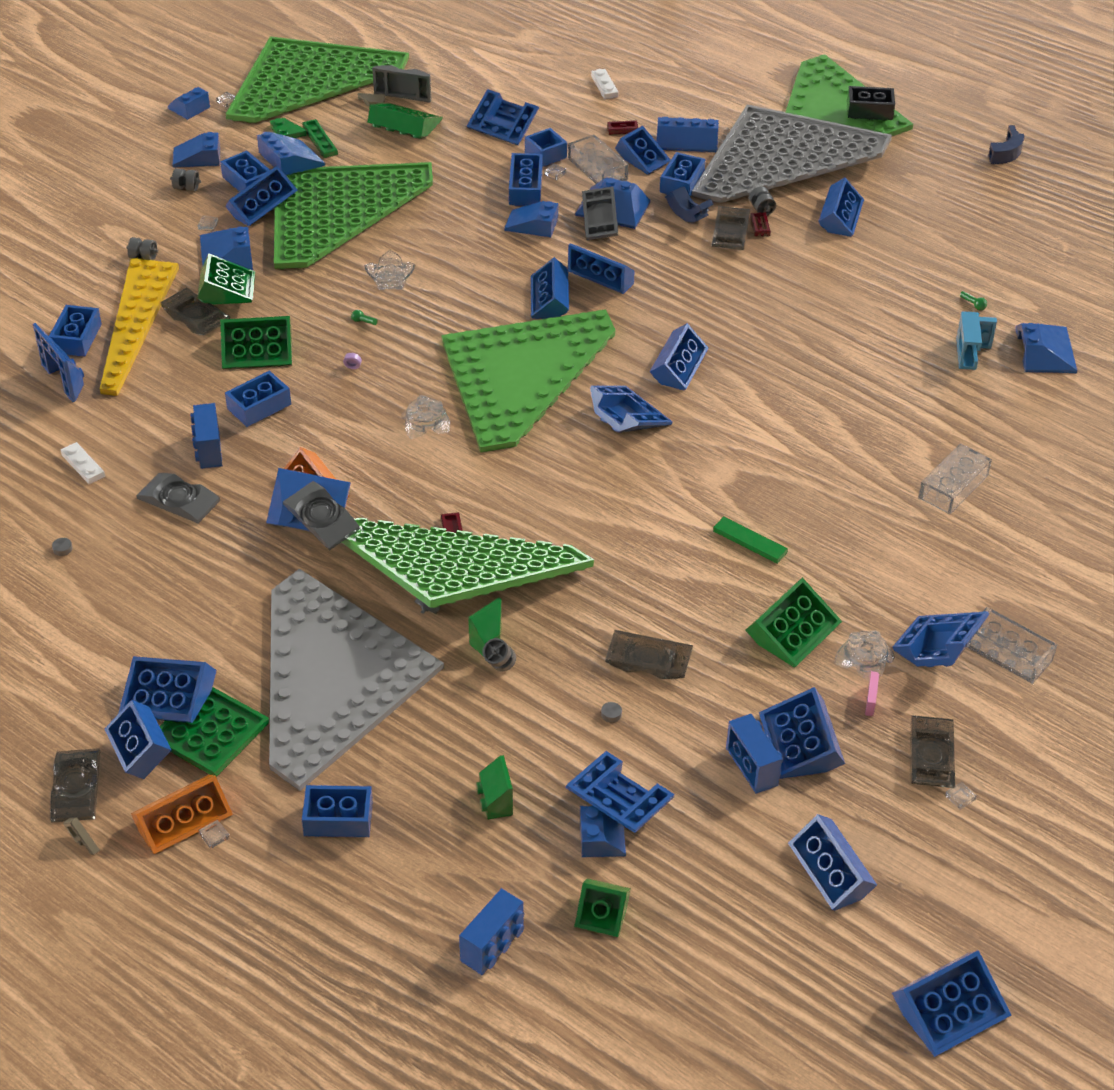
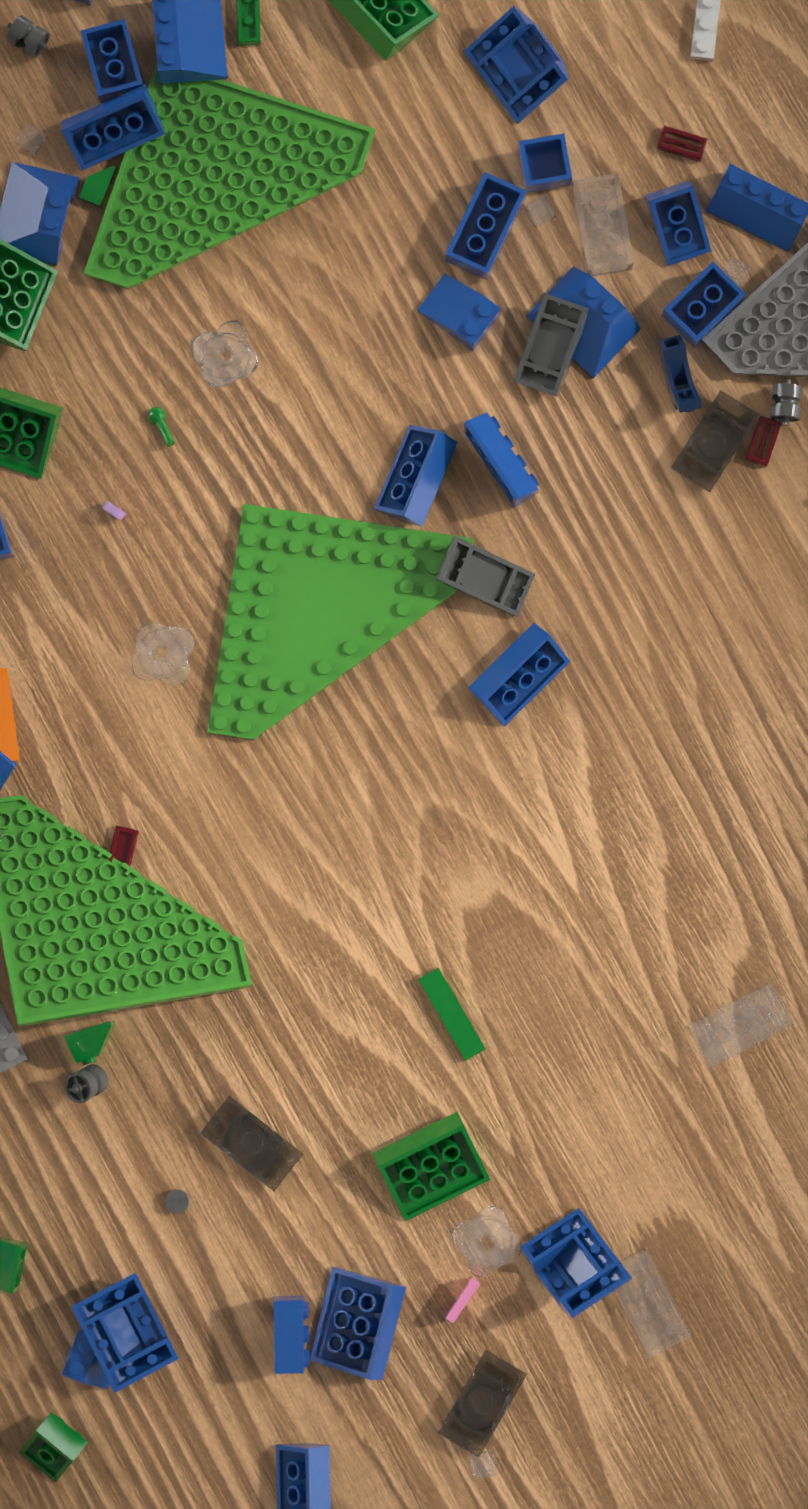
camera: 25 degrees right, 40 degrees up
(262, 231) = (97, 186): none -> green tile
(625, 409) = (411, 743): blue slope -> none
(626, 319) = (485, 576): none -> dark grey slope

